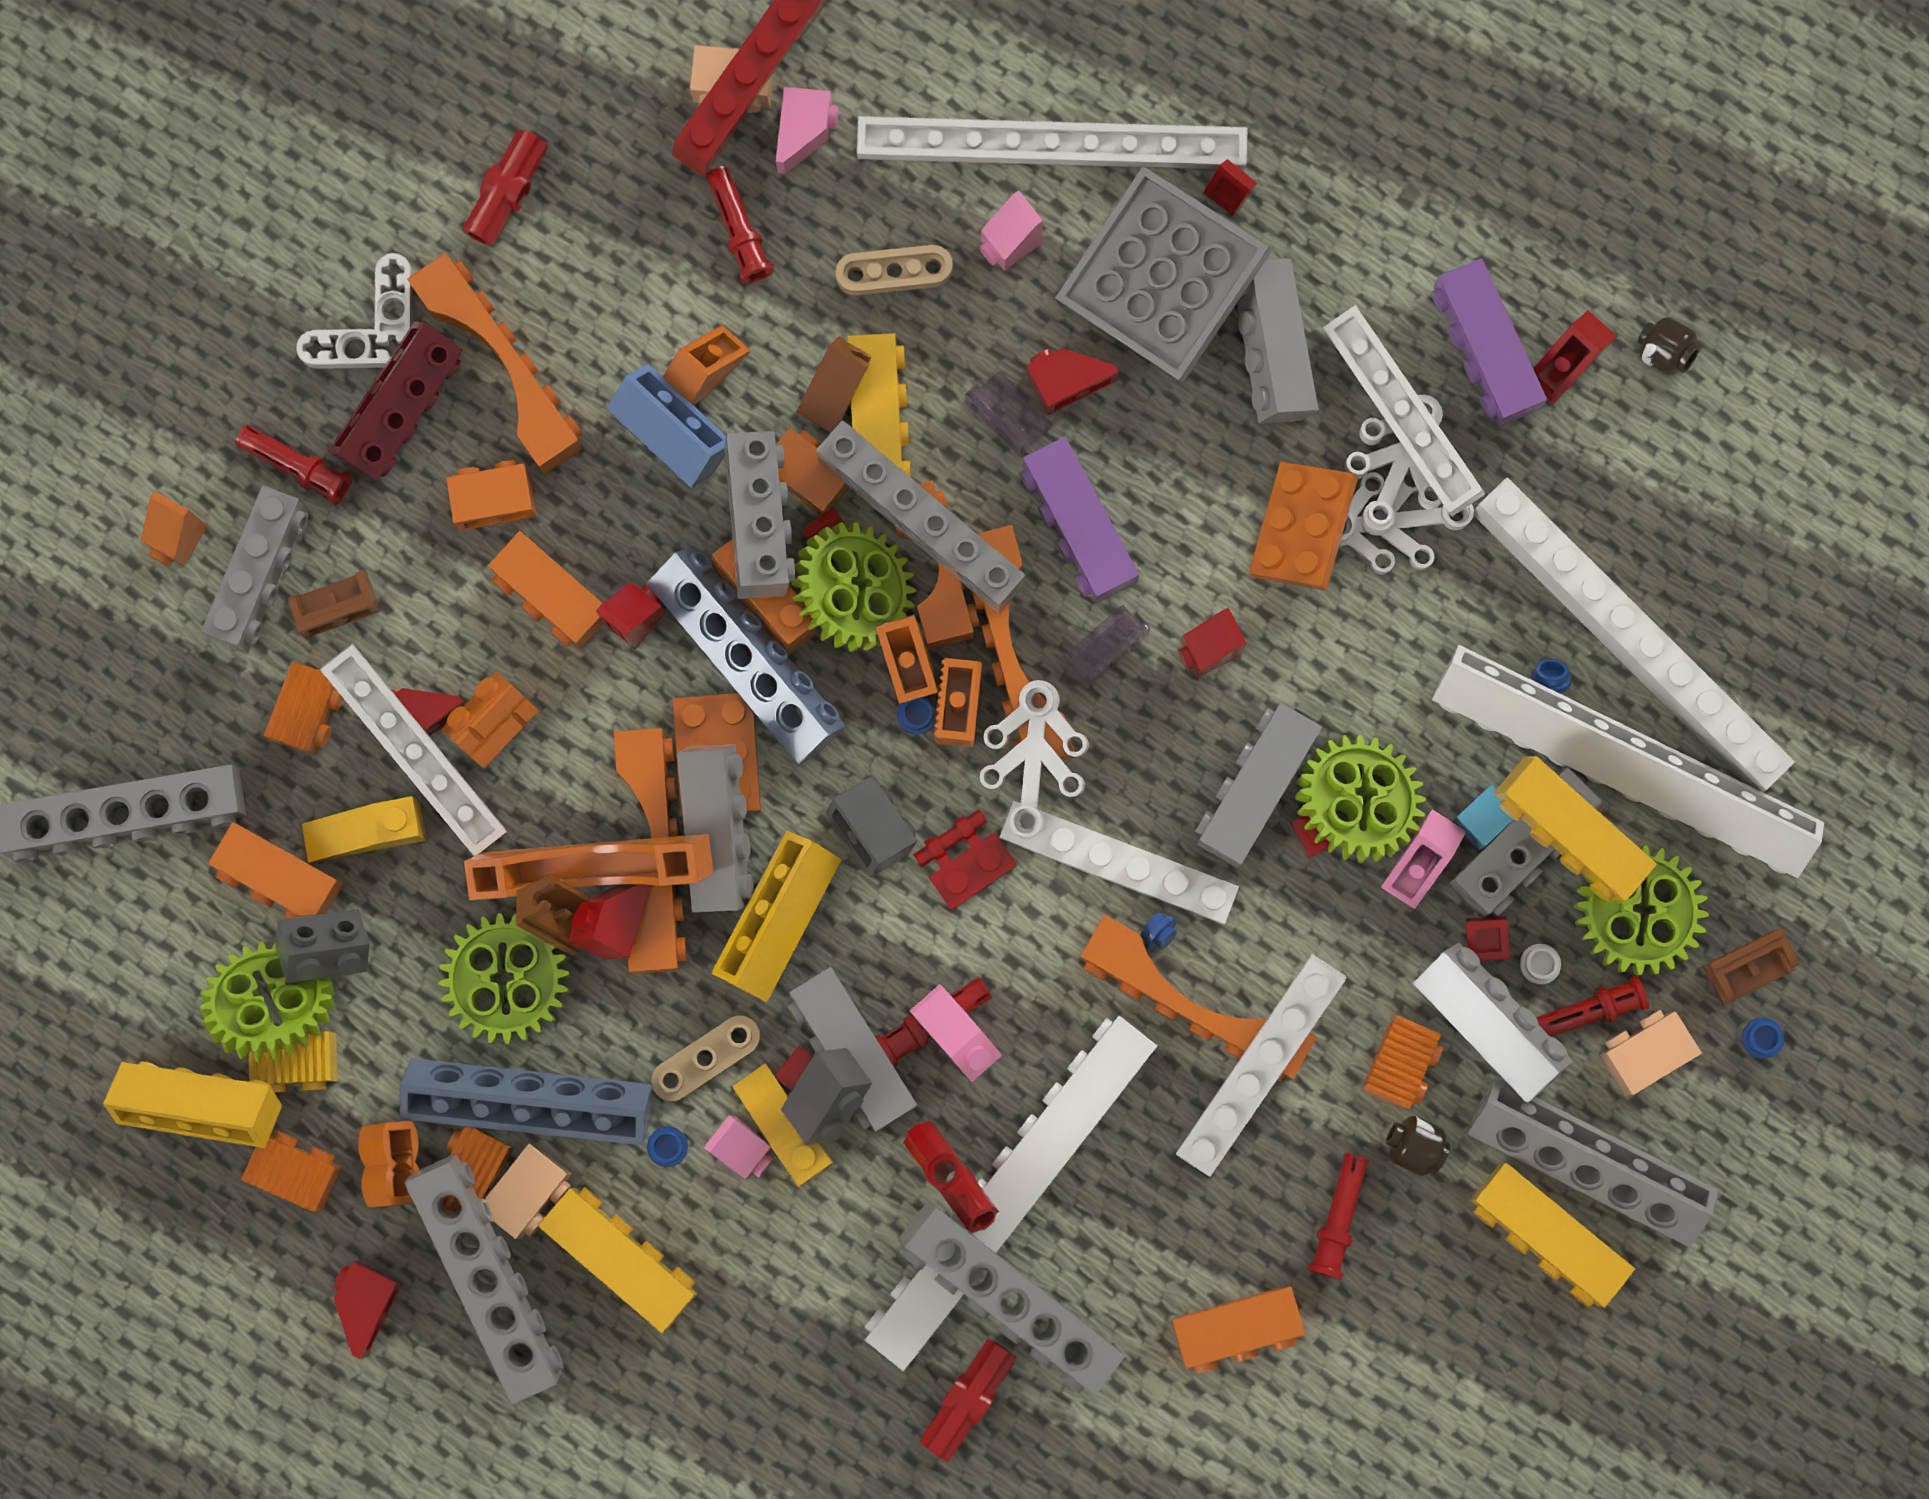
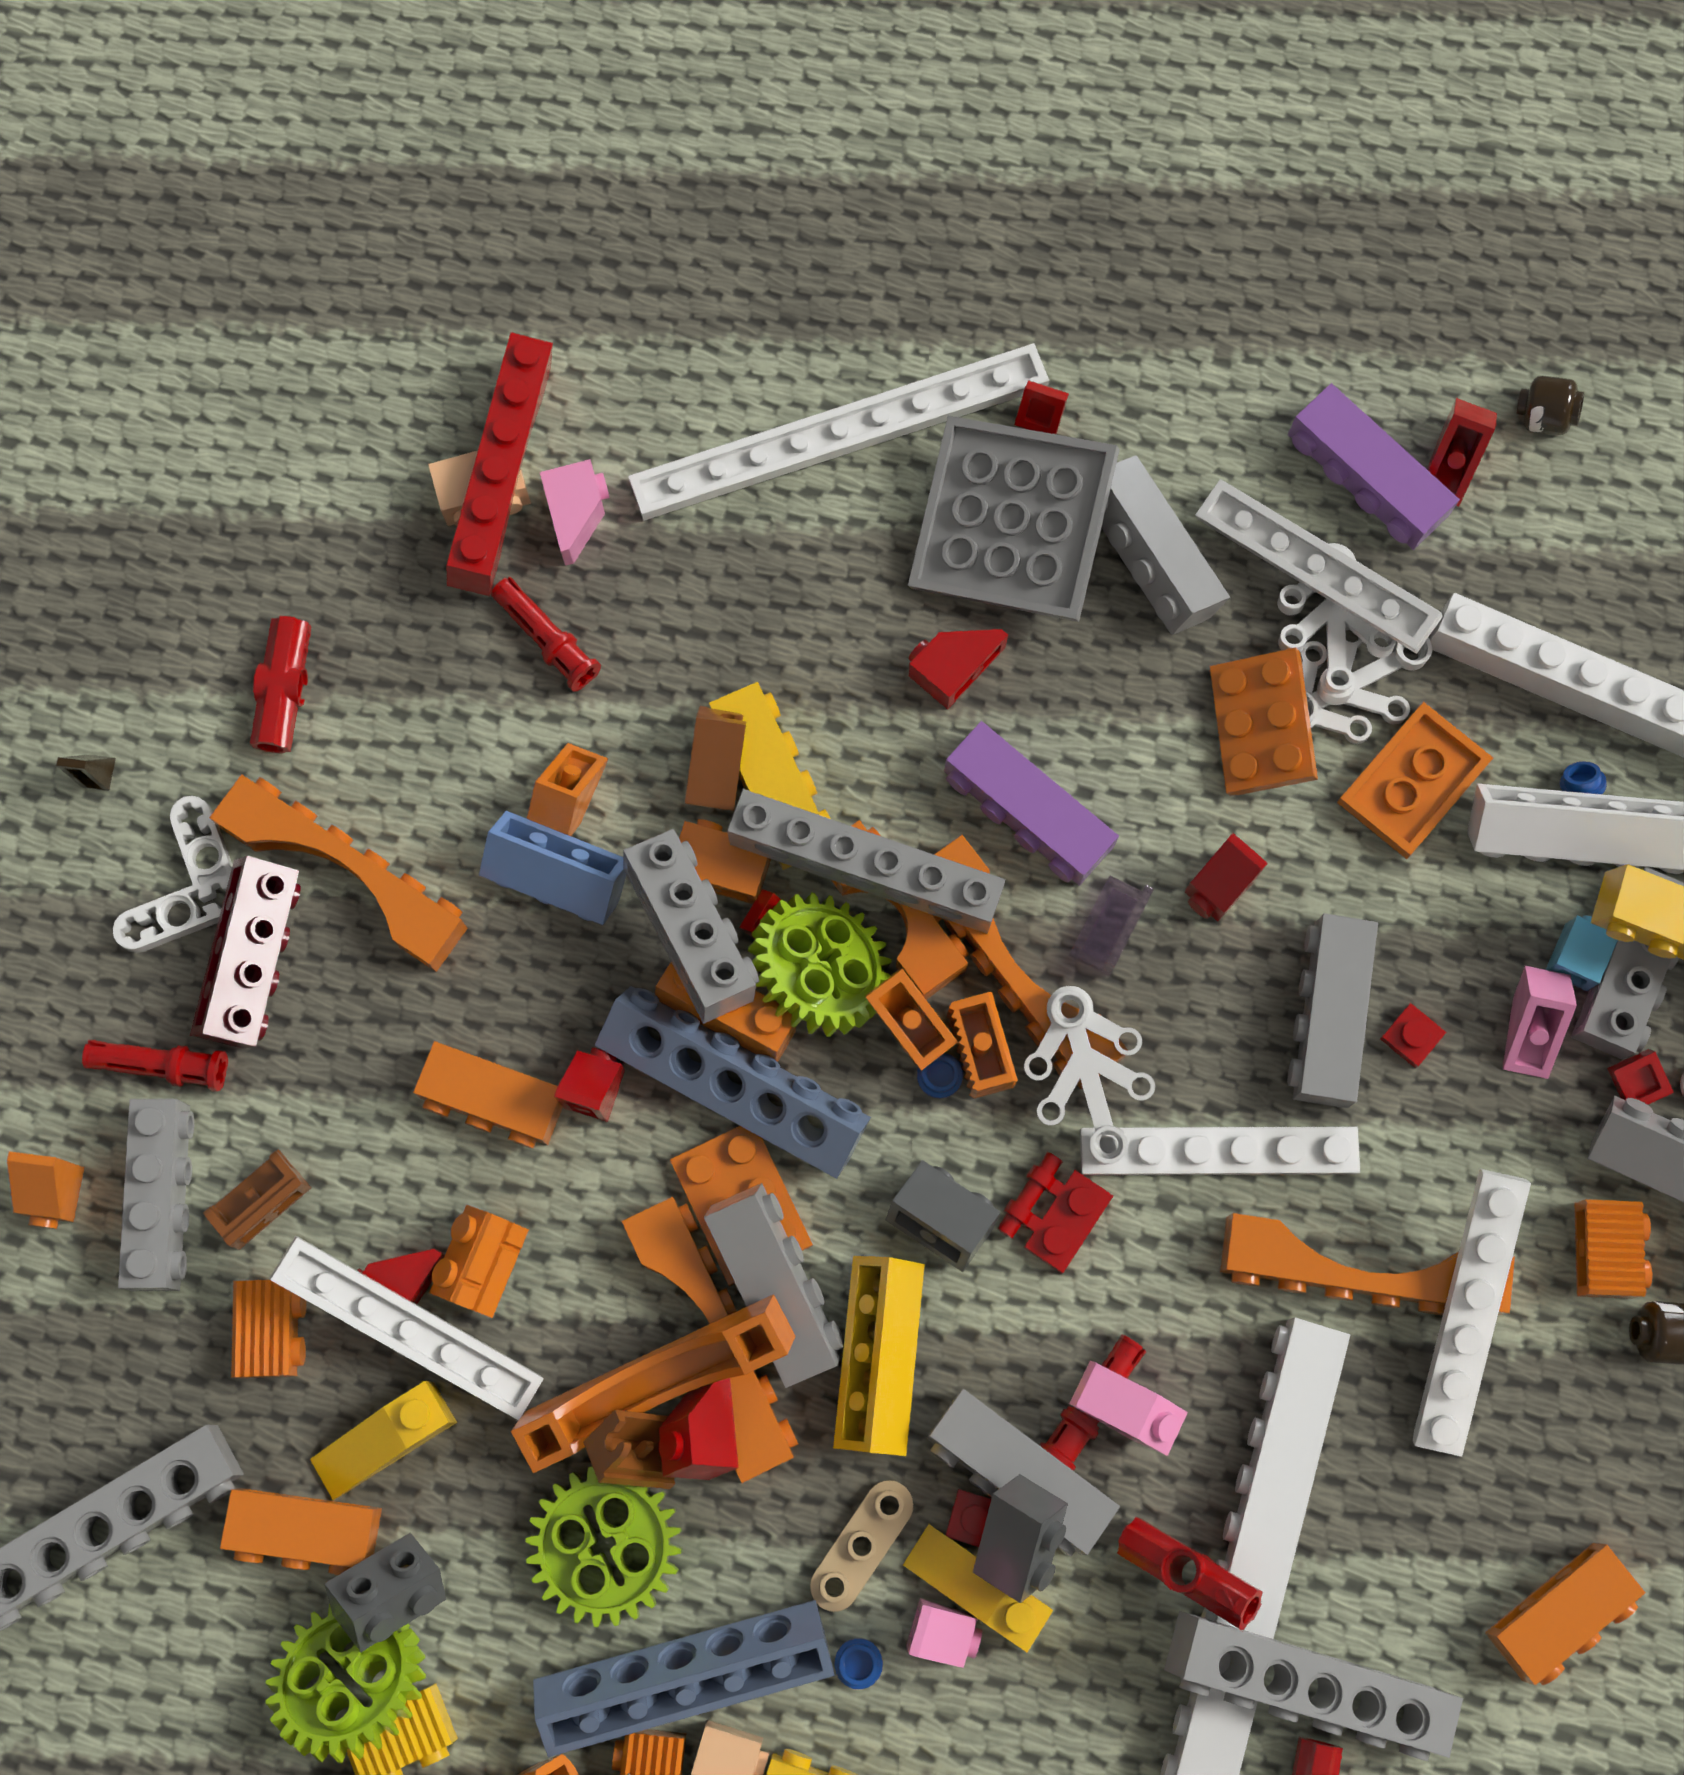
camera: 25 degrees left, 5 degrees down
(325, 201) = (88, 770): none -> dark brown piece
(491, 495) = (387, 1015): orange brick -> none
(911, 262) = (739, 603): tan plate -> none
(1008, 413) = (907, 722): panel -> none
(1011, 232) = (838, 533): bright pink slope -> none
(1159, 932) = (1295, 1208): blue plate -> none
(1326, 794) = (1446, 983): lime gear -> none
(1334, 1236) = (1622, 1468): red pin -> none
(1410, 622) = (1415, 780): none -> orange plate

